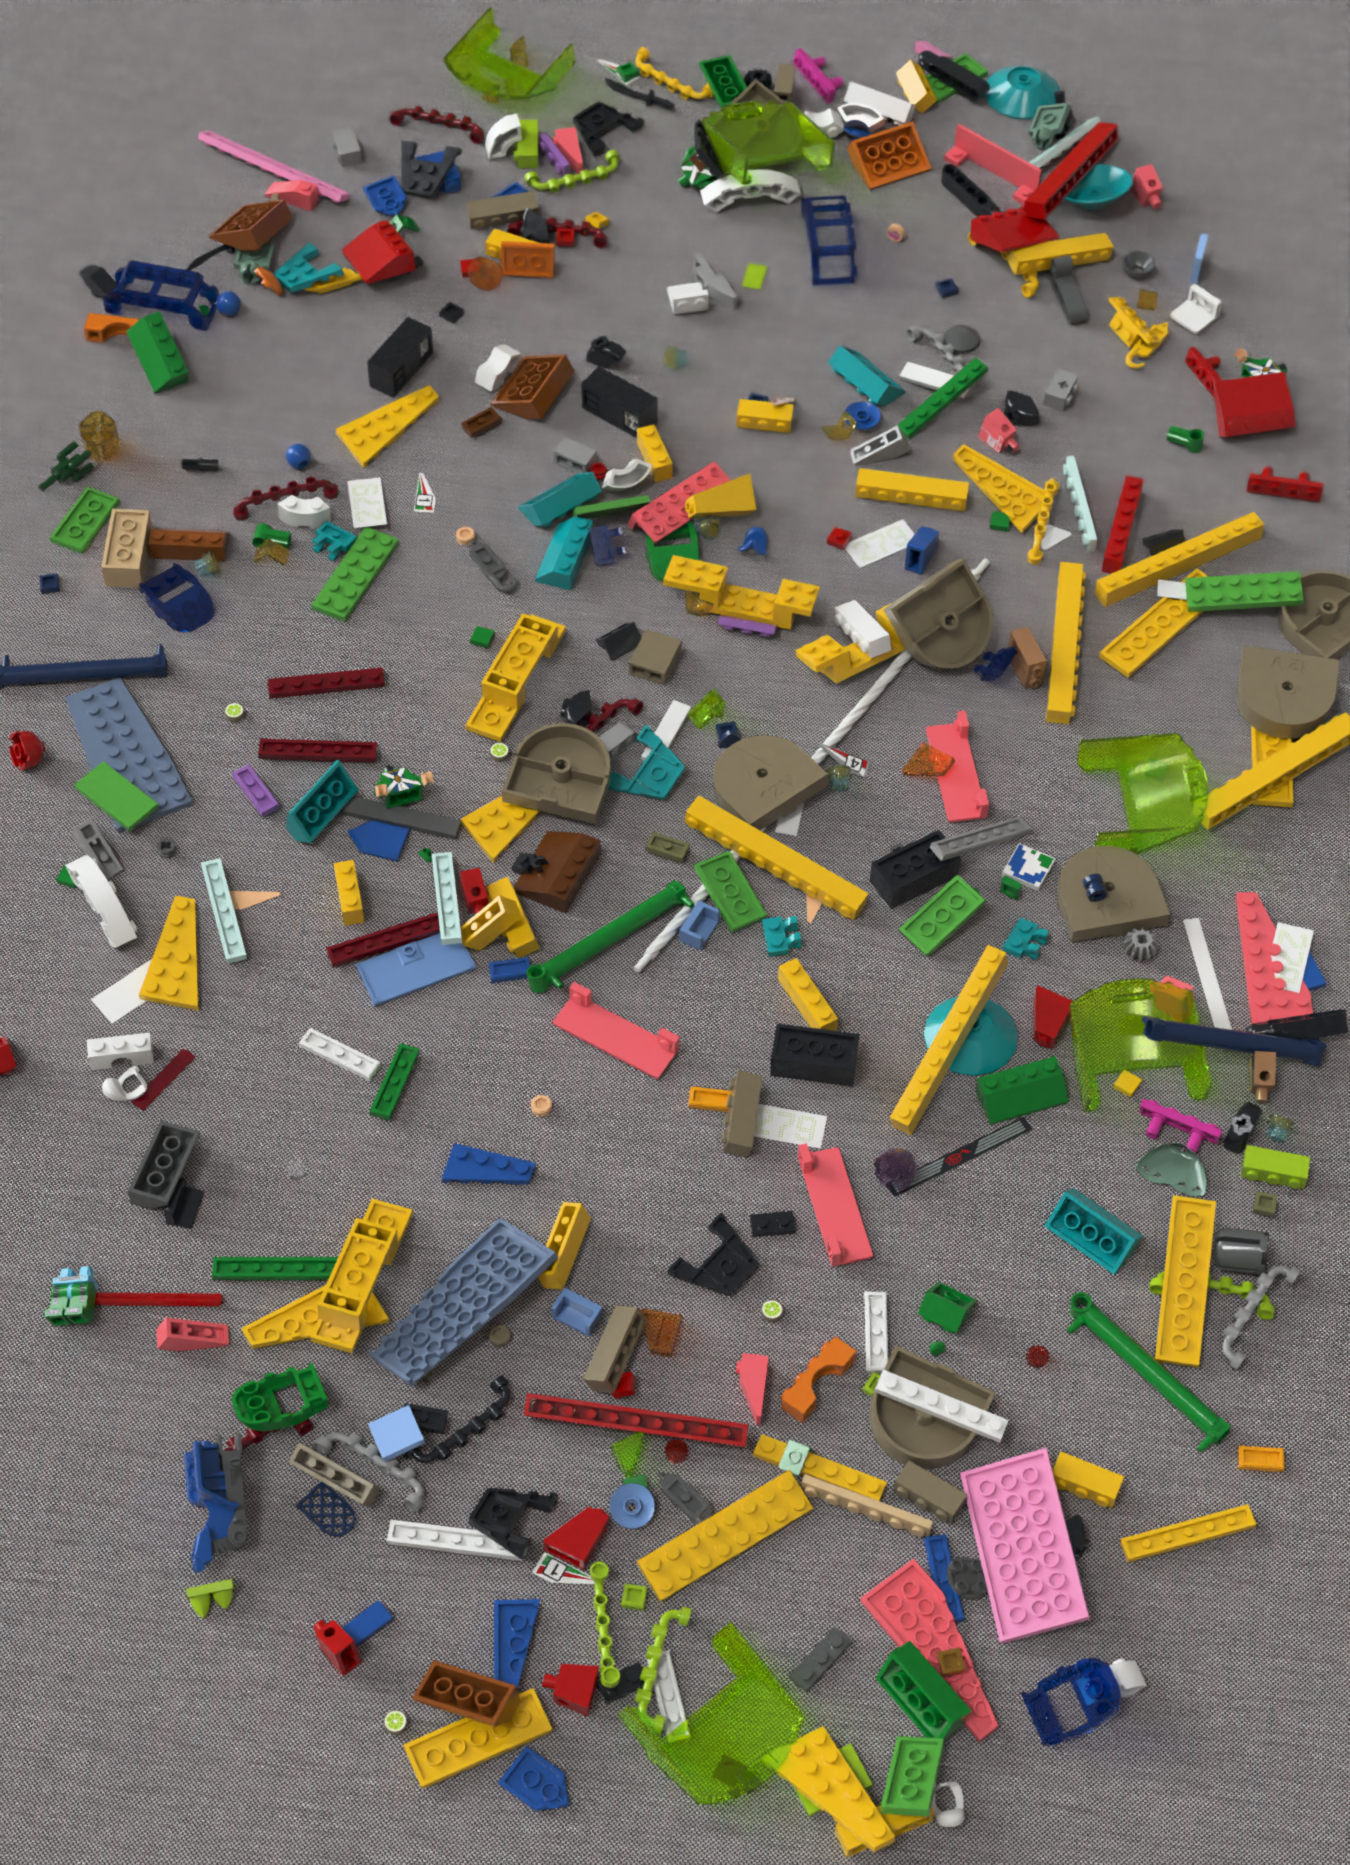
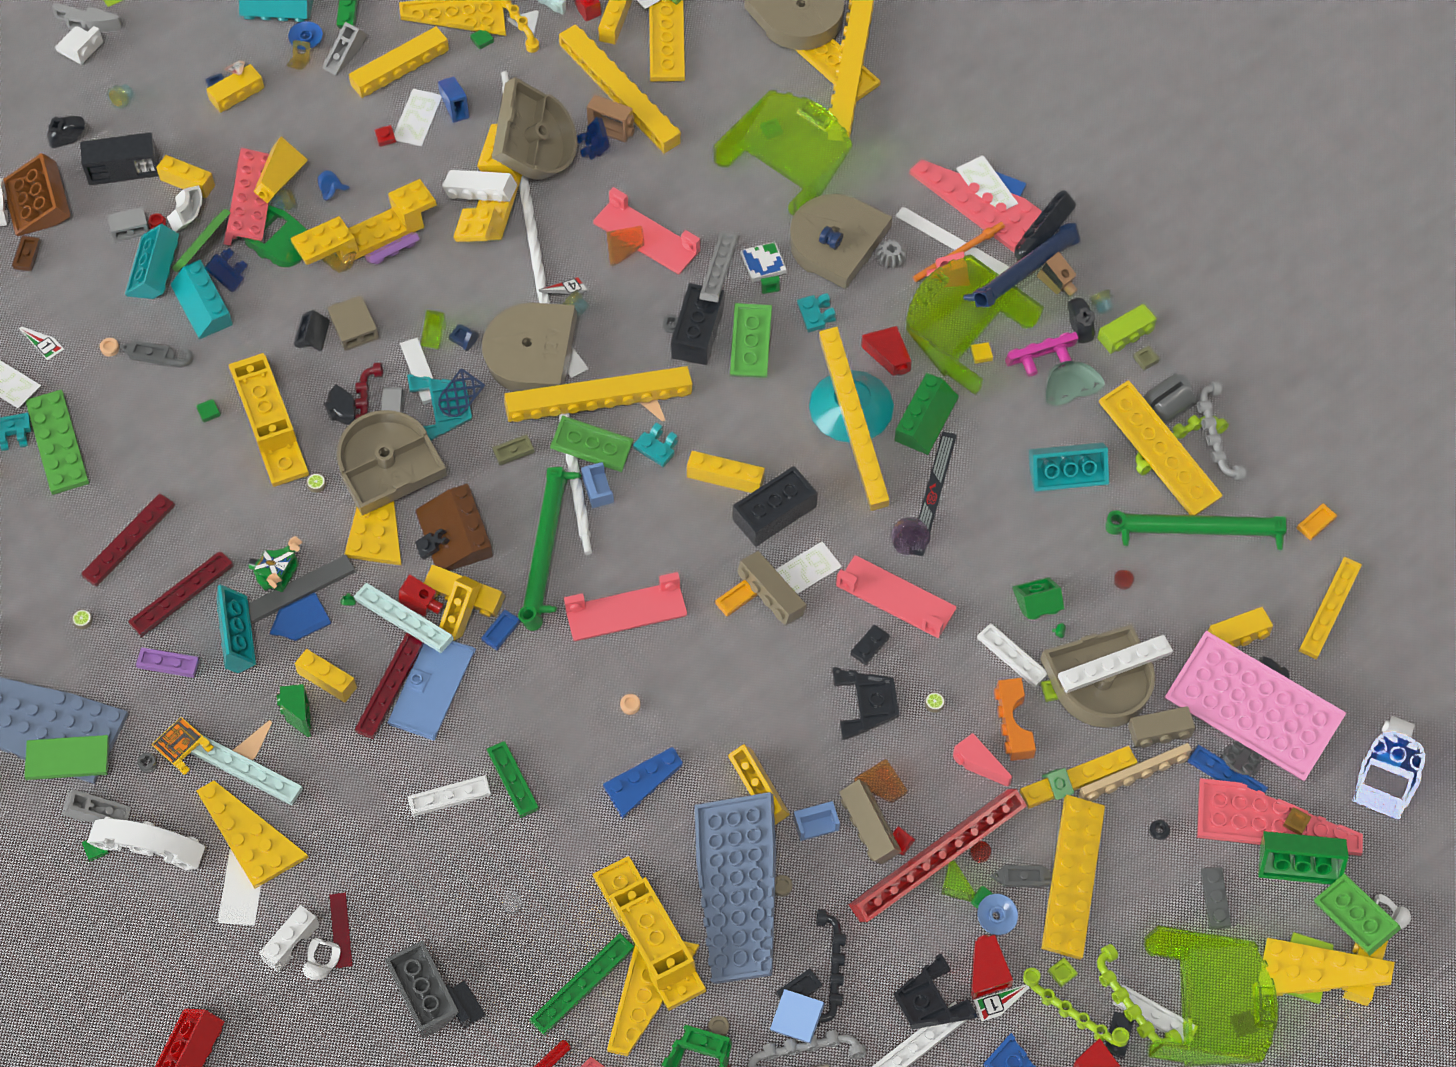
camera: 45 degrees left, 5 degrees up
(200, 852) = (179, 742): none -> flag
(303, 895) = (295, 707): none -> green slope
(338, 1390) = (719, 1025): none -> dark tan tile
(679, 782) = (472, 378): none -> dark blue window
(836, 1561) = (1161, 825): none -> black plate
(1240, 994) = (986, 234): none -> orange bar

